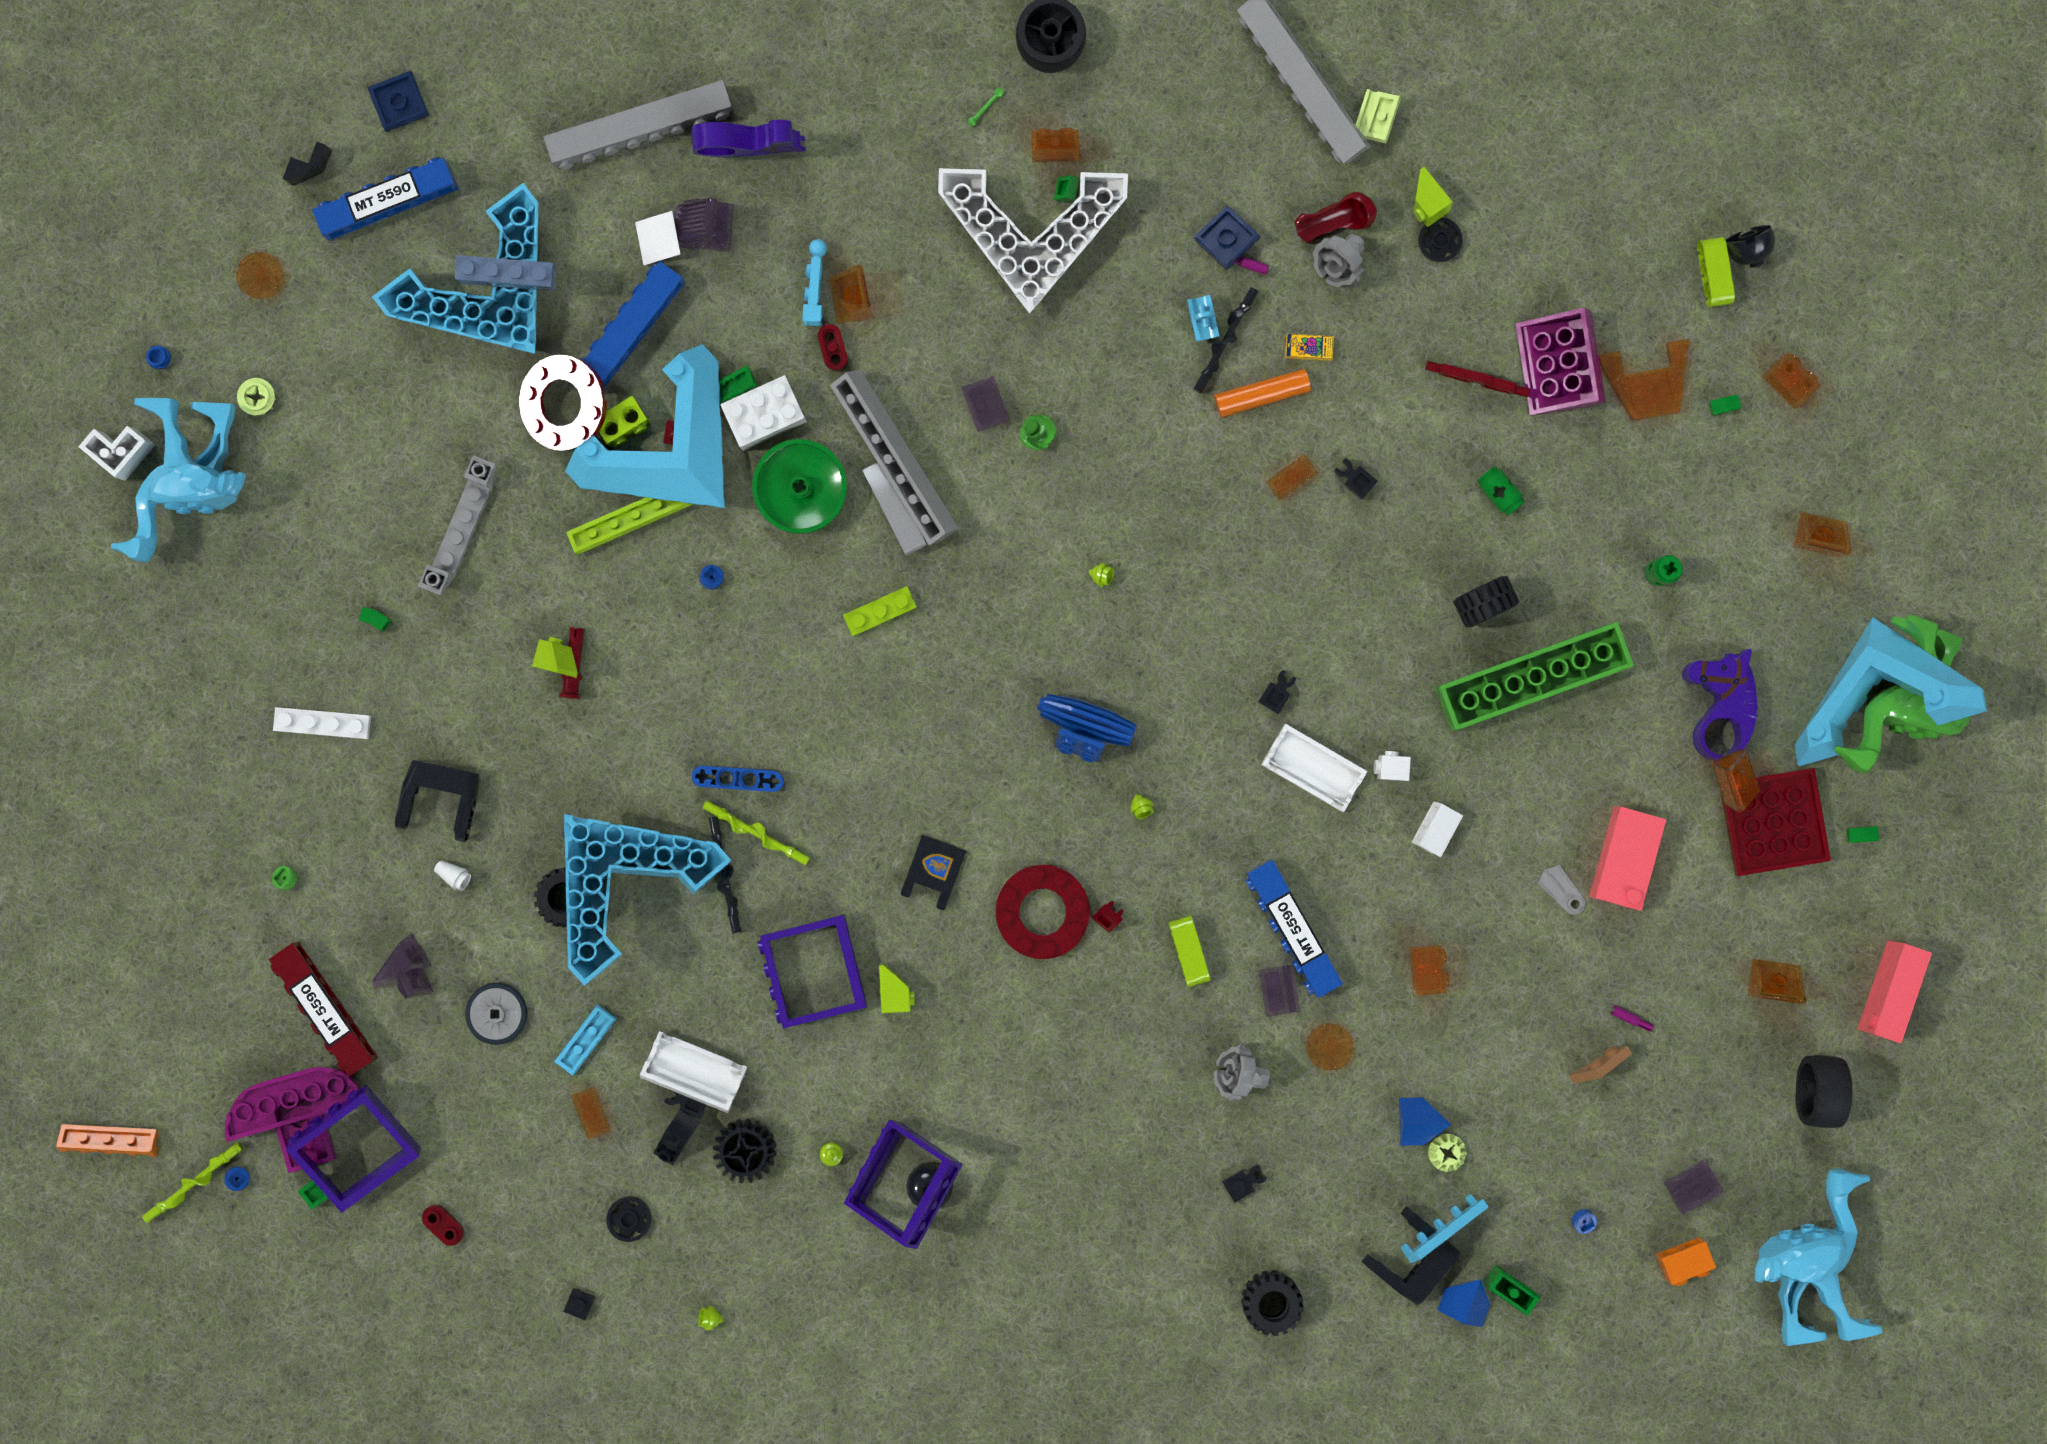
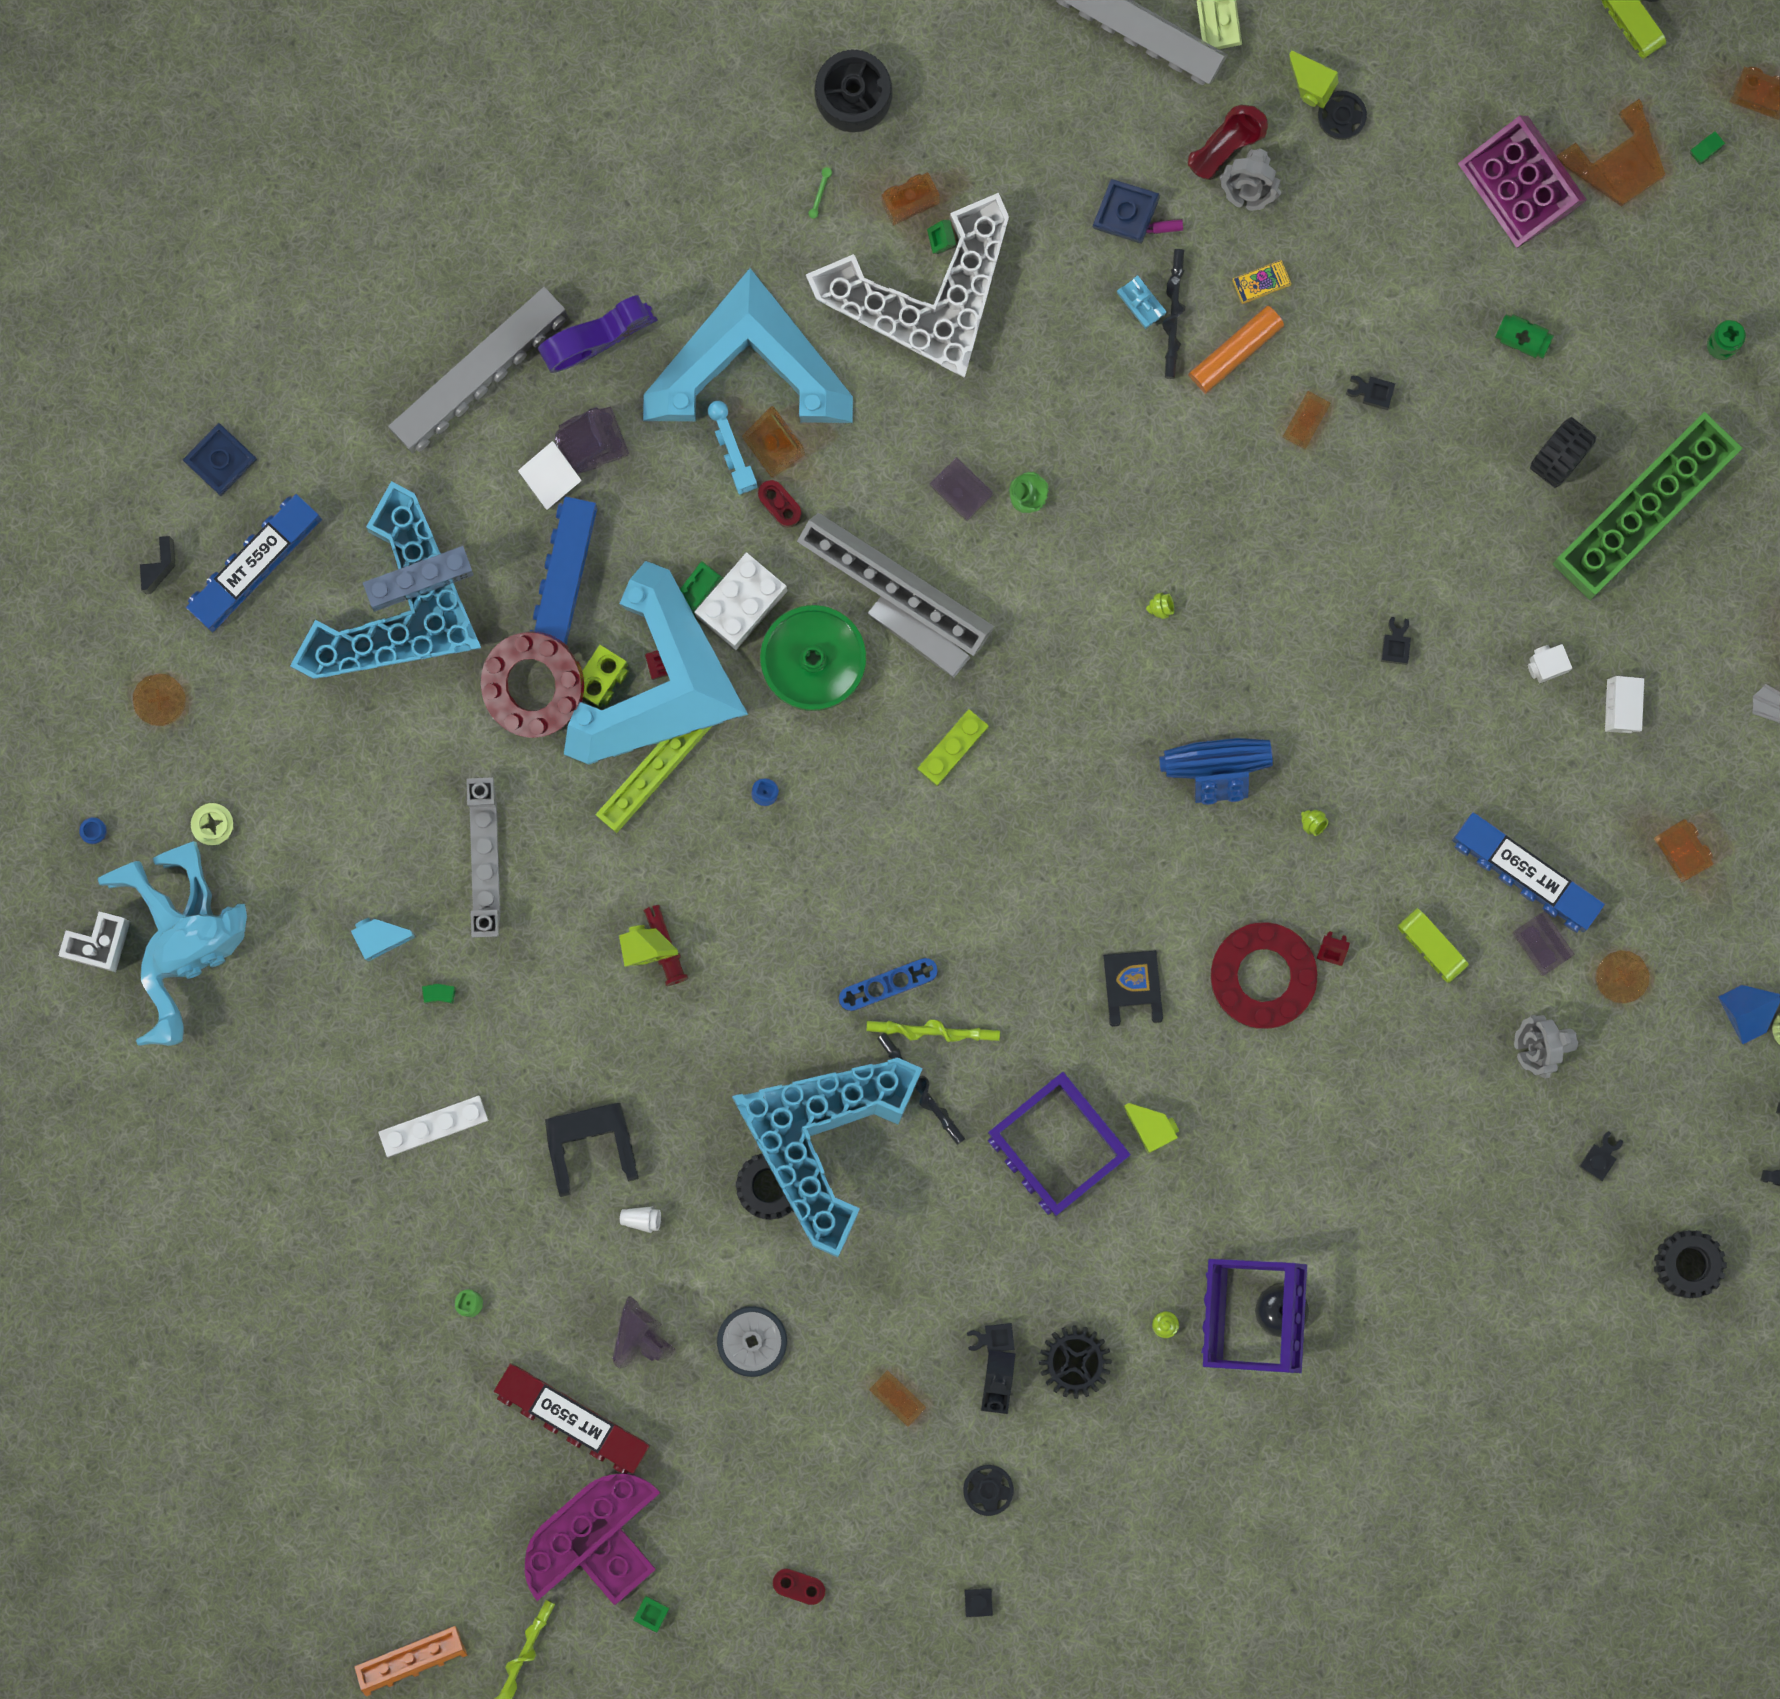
camera: 15 degrees left, 5 degrees down
(236, 1178) = (562, 1638): blue tile -> none
(346, 550) = (379, 937): none -> medium azure slope
(386, 1170) = (708, 1565): dark purple window -> none
(585, 1039) = (856, 1325): medium azure tile -> none
(693, 1072) = (984, 1305): white gear -> none
(709, 1318) = (1119, 1553): lime plate -> none
(876, 183) = (755, 320): none -> medium azure wedge
(1314, 768) = (1469, 701): white gear -> none
(1473, 376) = (1455, 233): dark red piece -> none

